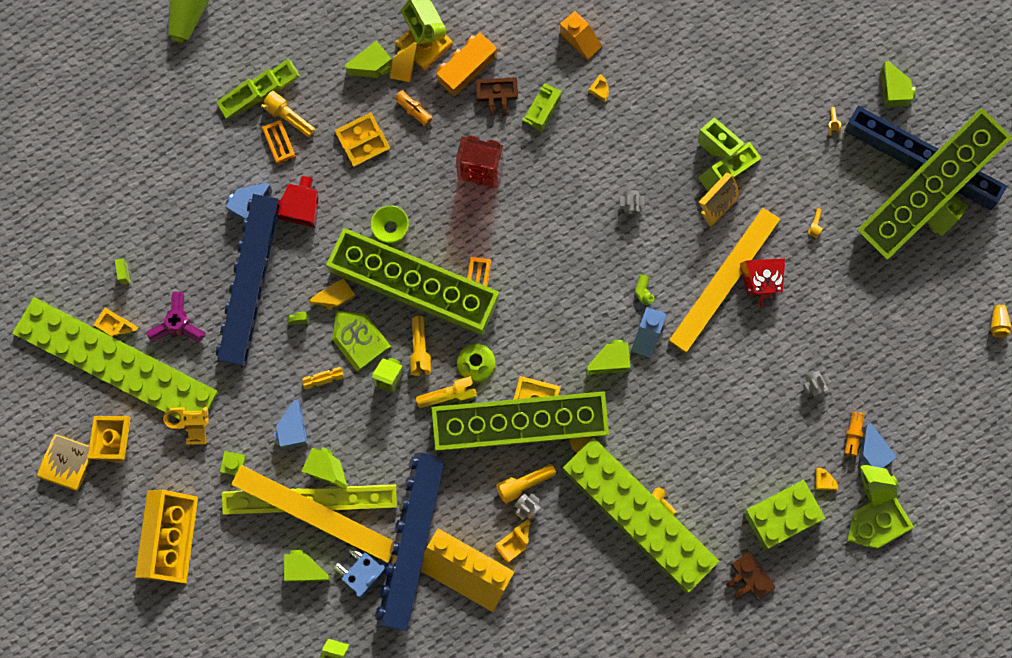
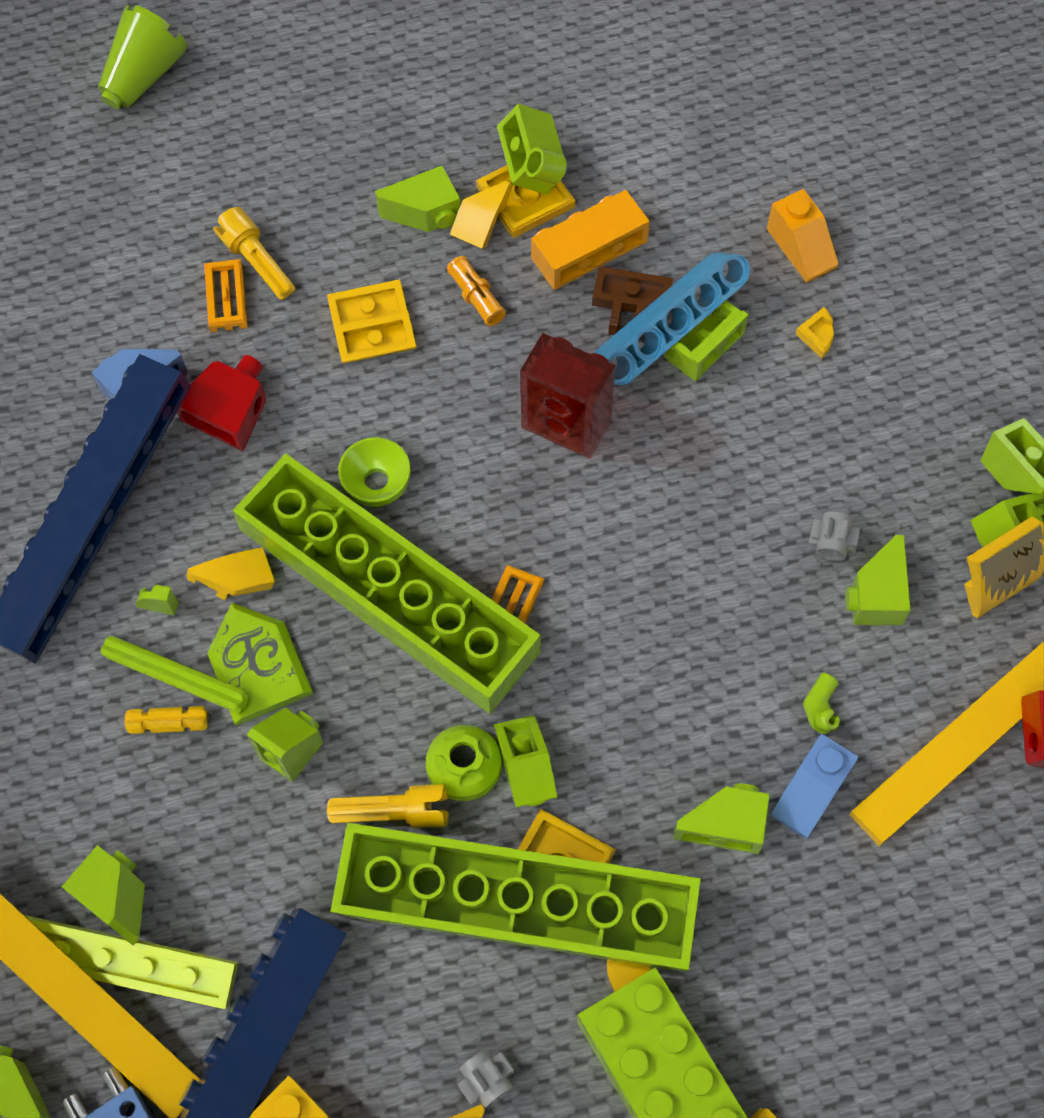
camera: 15 degrees right, 10 degrees down
(256, 90) = (201, 204): lime slope -> none
(291, 428) = (75, 797): medium blue slope -> none
(320, 354) = (175, 674): none -> lime axle
(419, 359) = (358, 727): yellow piece -> none
(506, 354) = (526, 761): none -> lime slope
(512, 488) = (465, 1031): yellow piece -> none
(529, 98) = (686, 314): none -> dark azure beam
(660, 224) = (881, 588): none -> lime slope

